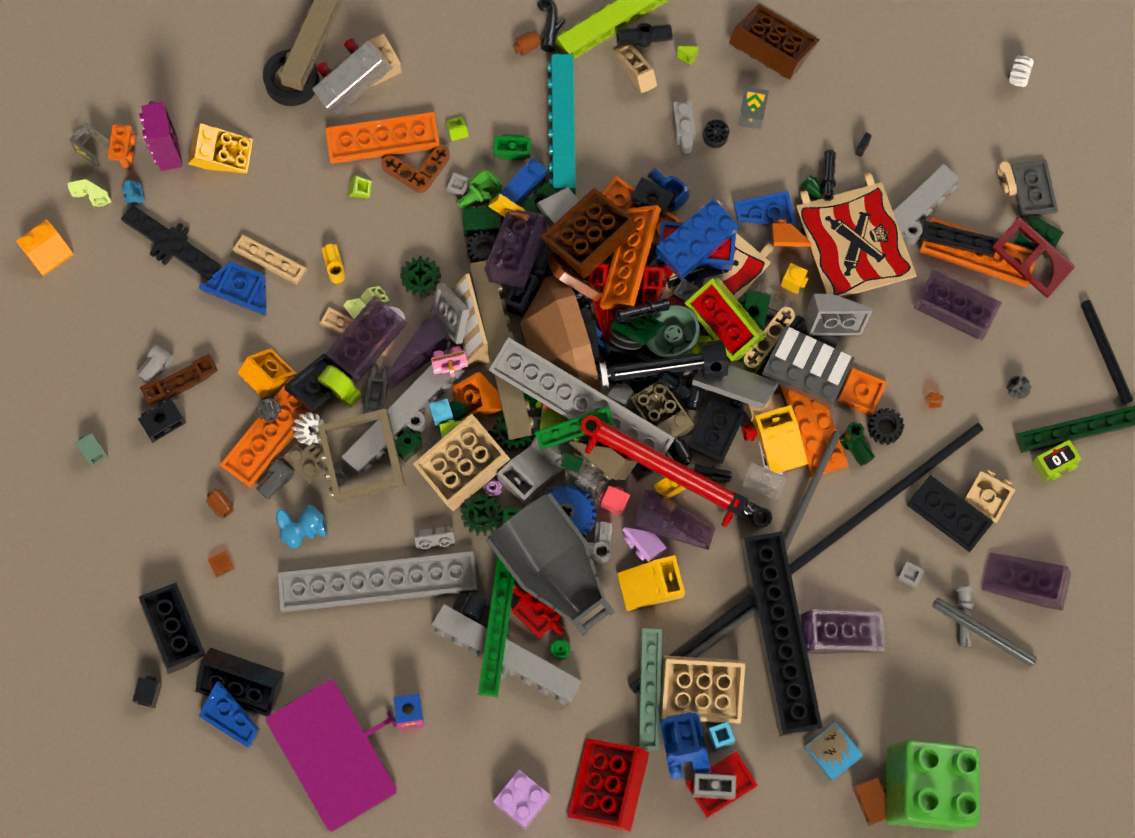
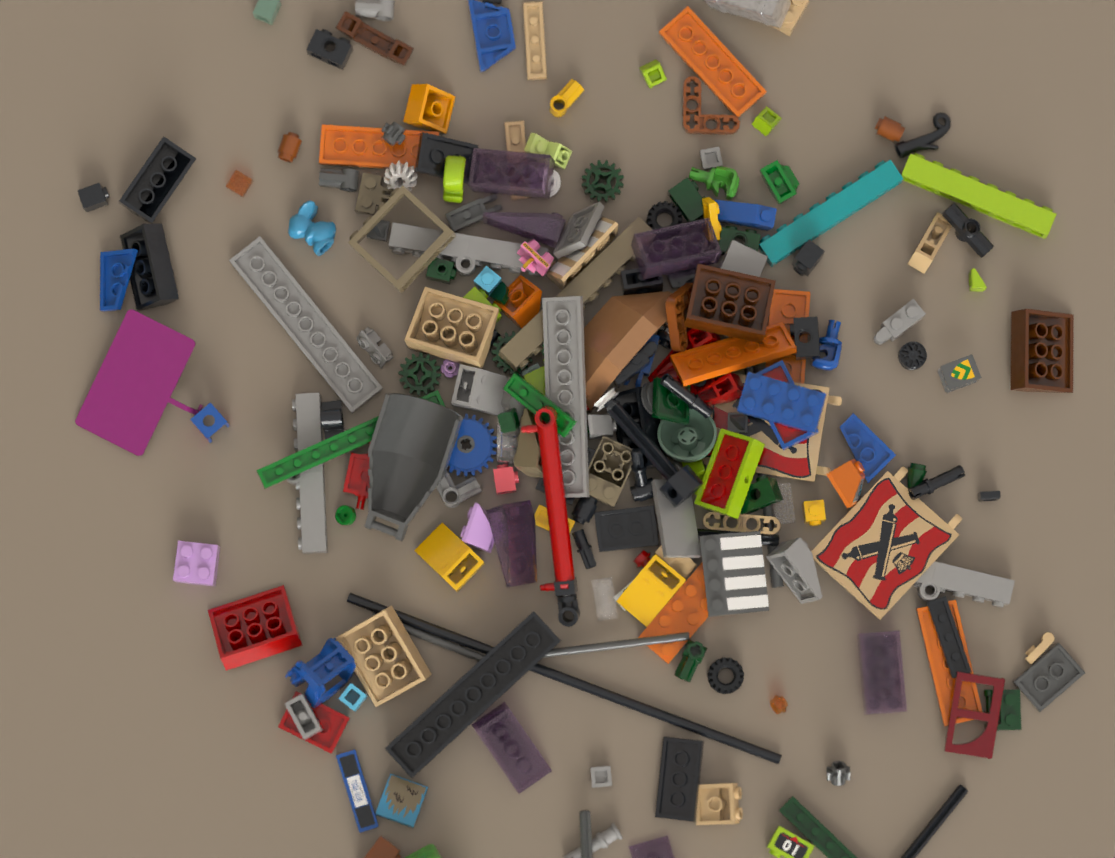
camera: 60 degrees right, 10 degrees up
(589, 159) = (807, 258): none -> black brick
(650, 689) = (356, 612): sand green plate -> none
(802, 784) = (357, 791): none -> tile
(862, 391) = (746, 635): orange tile -> none

